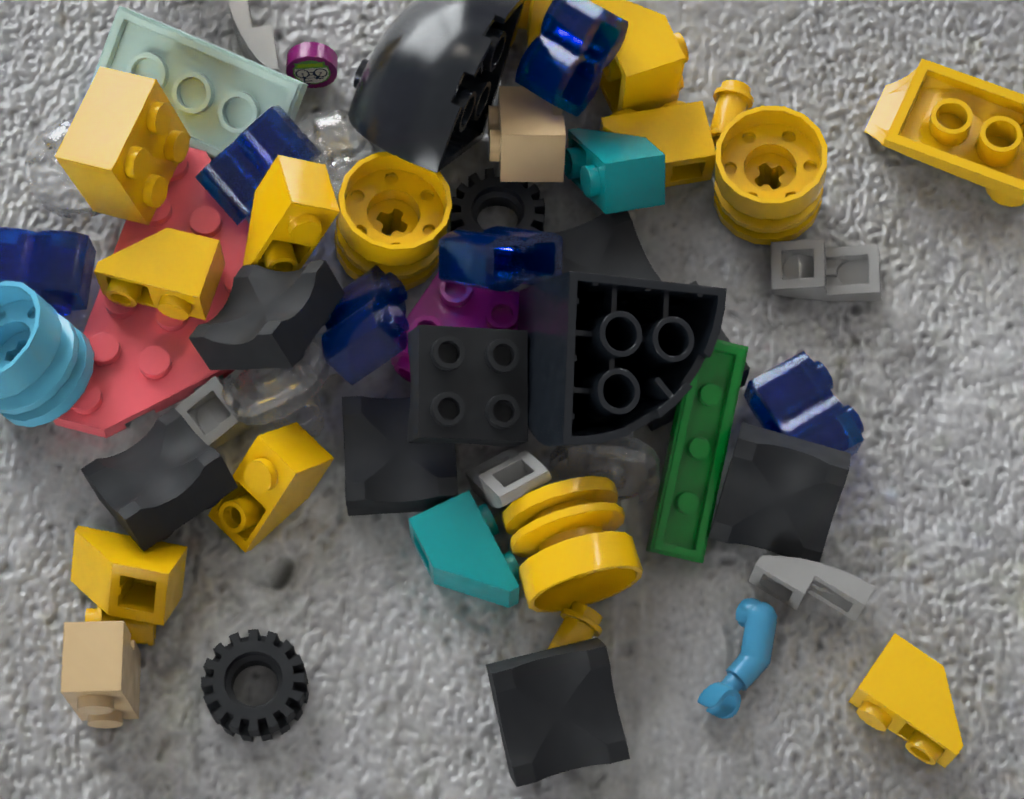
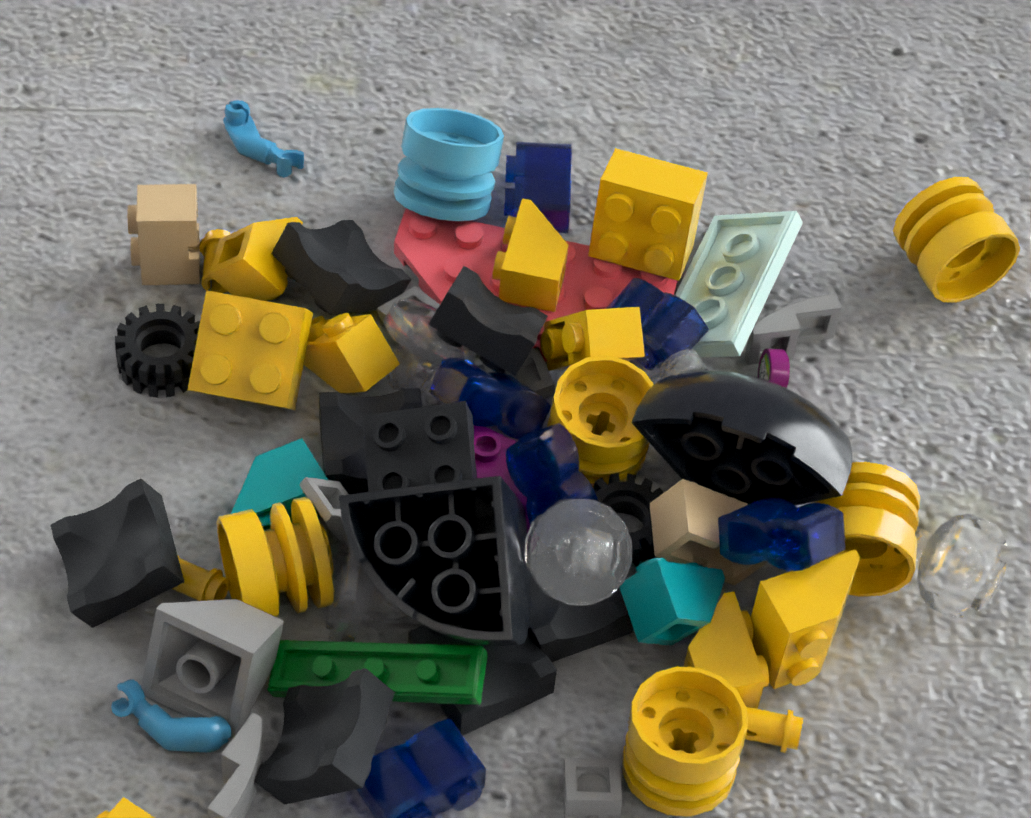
camera: 85 degrees right, 15 degrees down
(286, 572) = (250, 350): none -> yellow brick
(588, 231) = (578, 551): none -> clear tile
(691, 601) = (211, 658): none -> light grey slope

